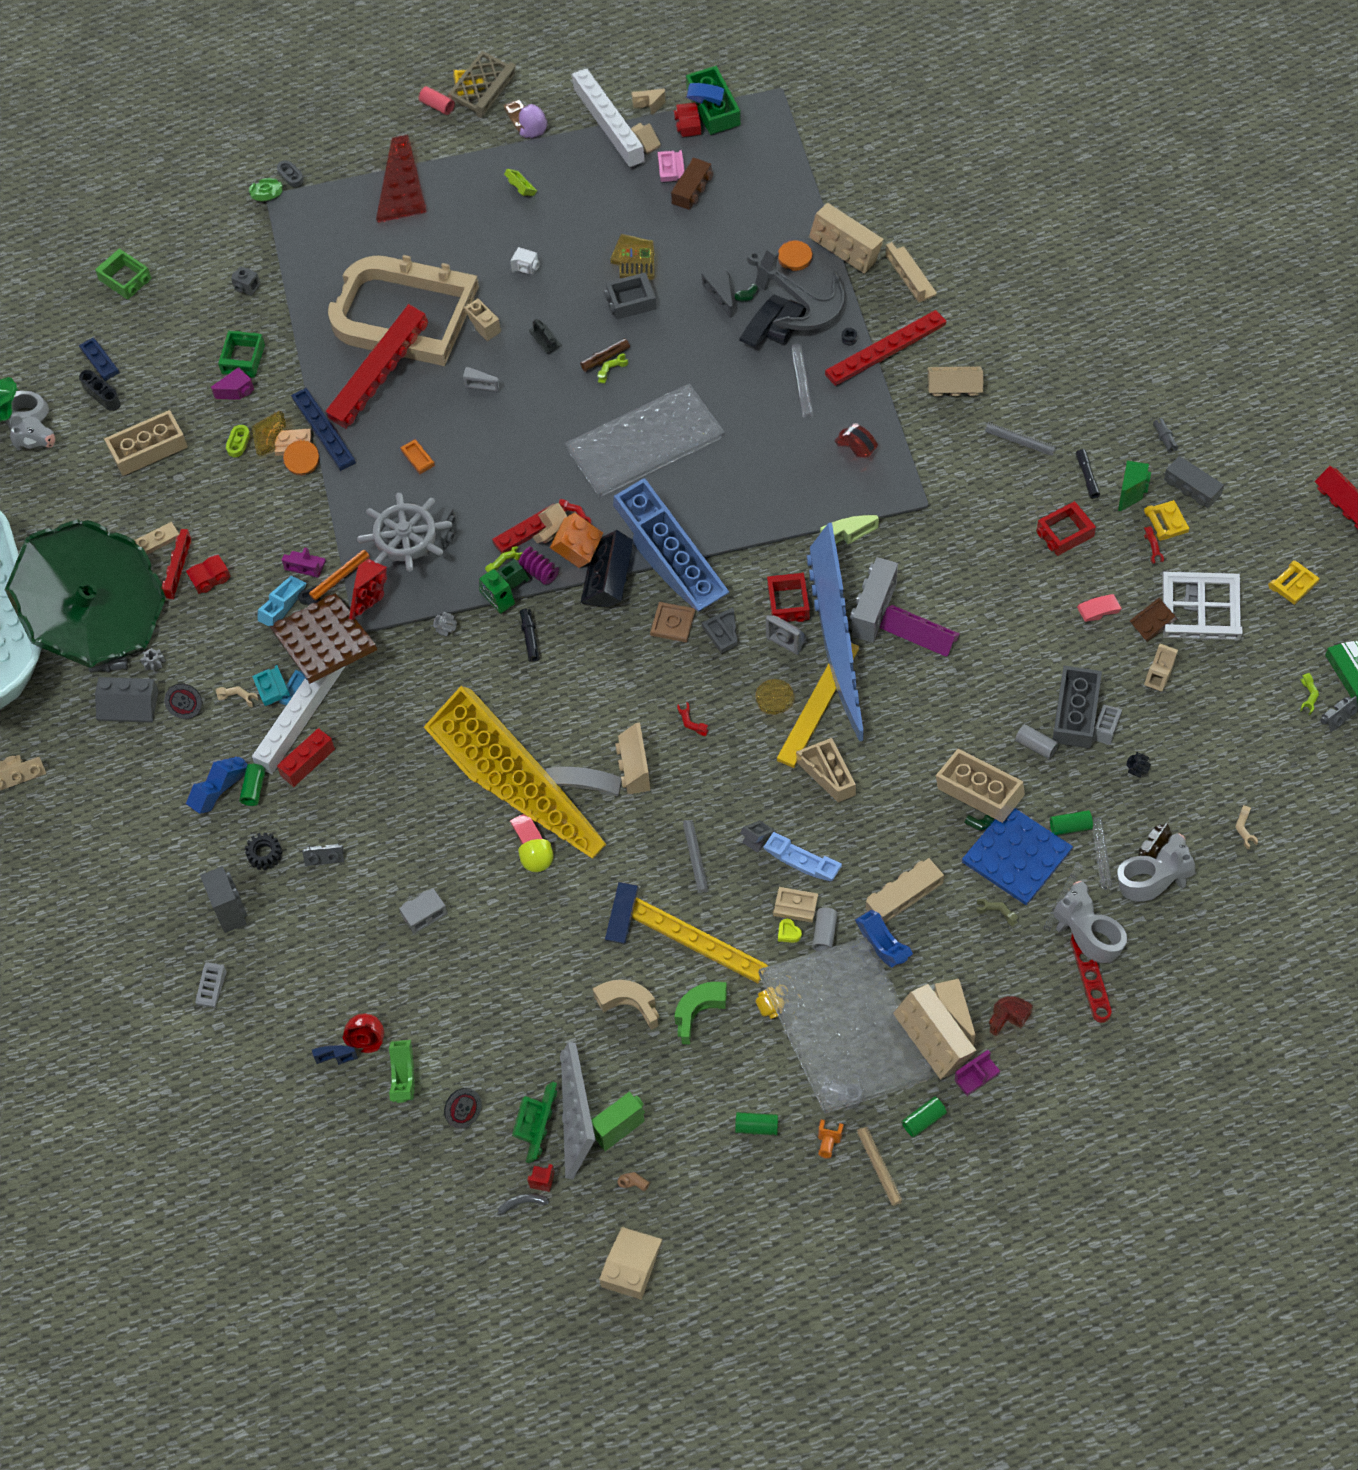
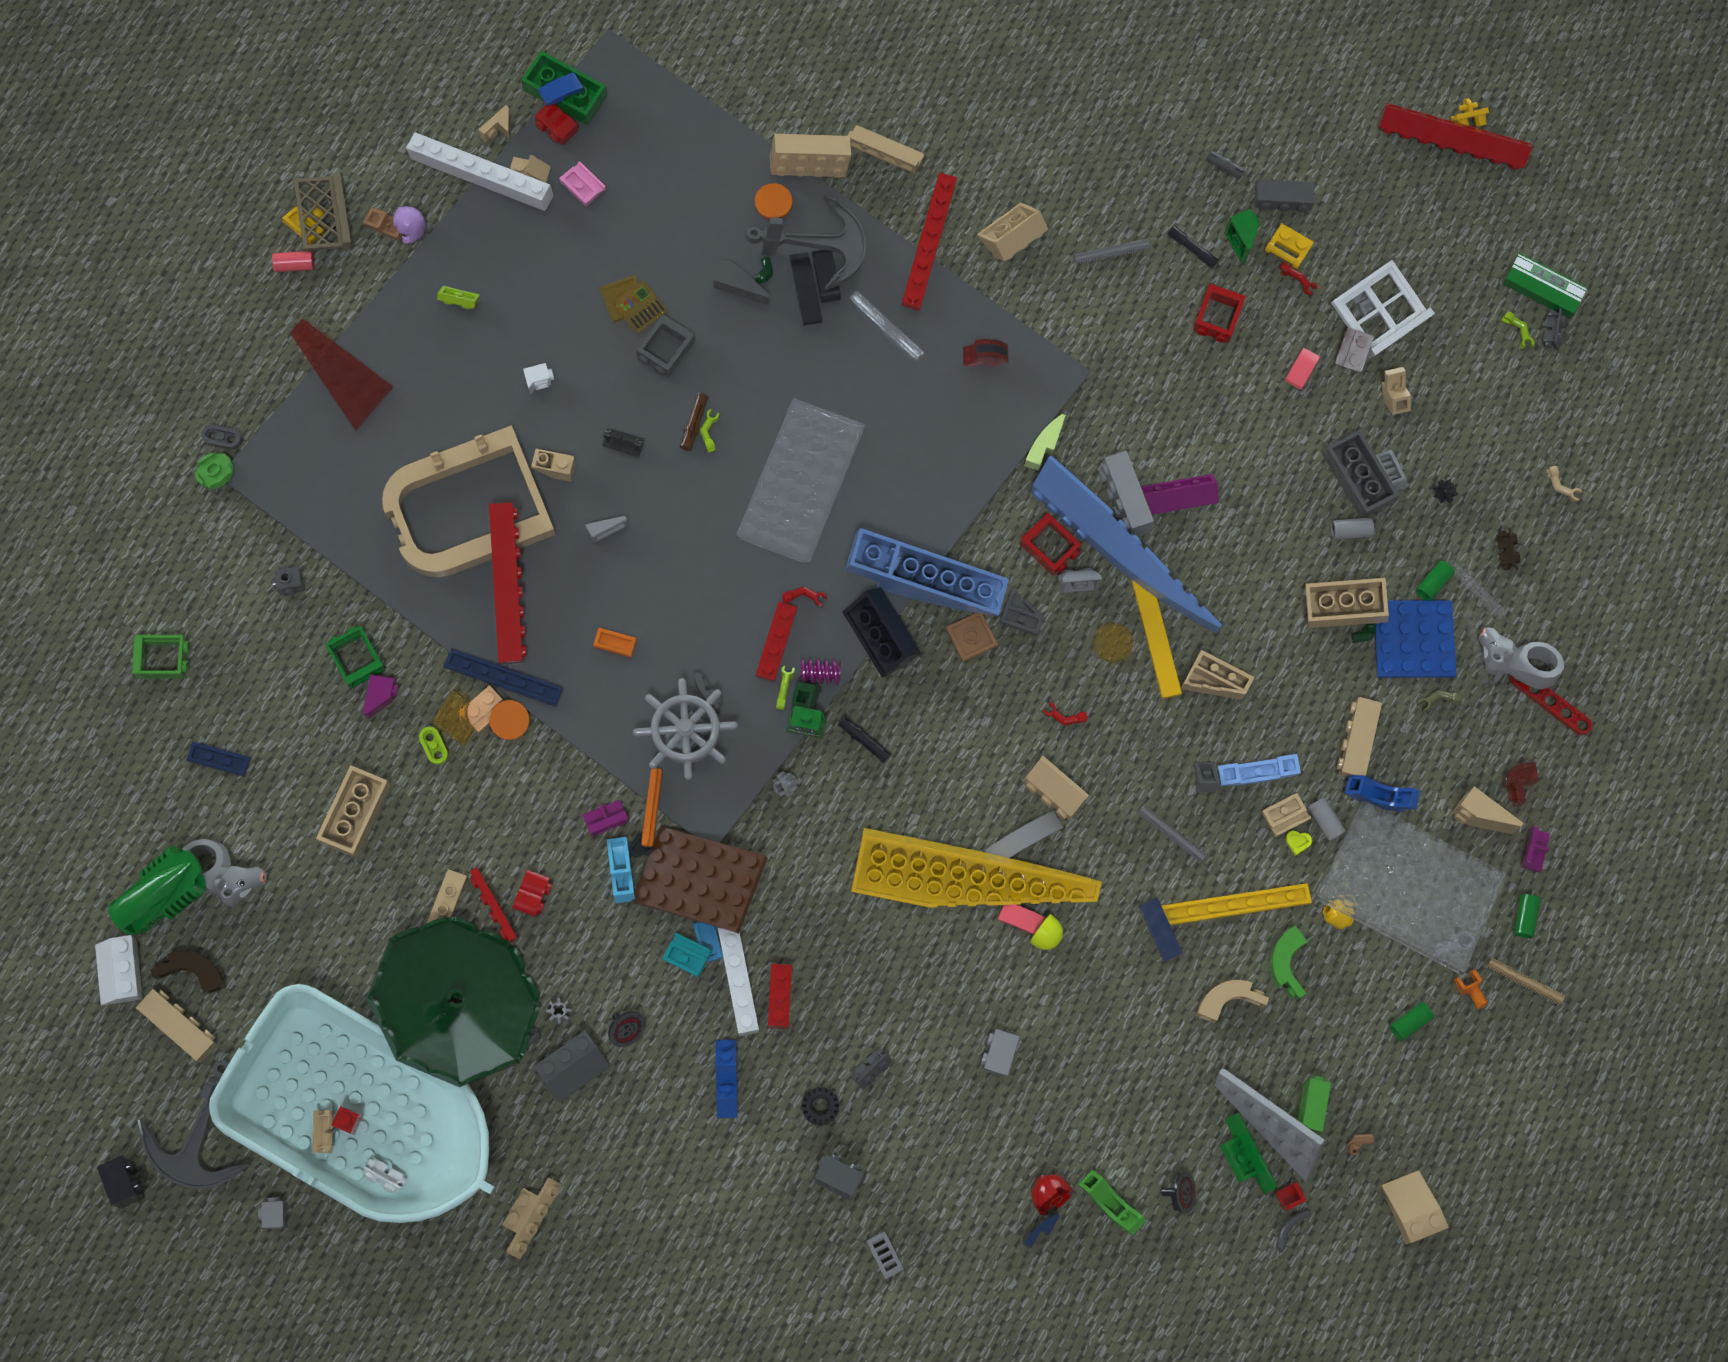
camera: 50 degrees left, 15 degrees up
(99, 390) = (245, 786): black beam -> none
(223, 693) = (650, 992): tan arm -> none
(252, 784) = (755, 1056): green pin -> none
(367, 587) = (697, 807): red slope -> none
(552, 519) = (802, 621): tan brick -> none
(576, 540) = (836, 624): orange brick -> none
(691, 183) = (620, 190): reddish brown brick -> none
(850, 332) = (887, 247): black bush -> none
(934, 1031) = (1486, 842): tan brick -> none
(1170, 864) = (1539, 565): light grey animal -> none
(1298, 586) = (1438, 234): yellow plate -> none

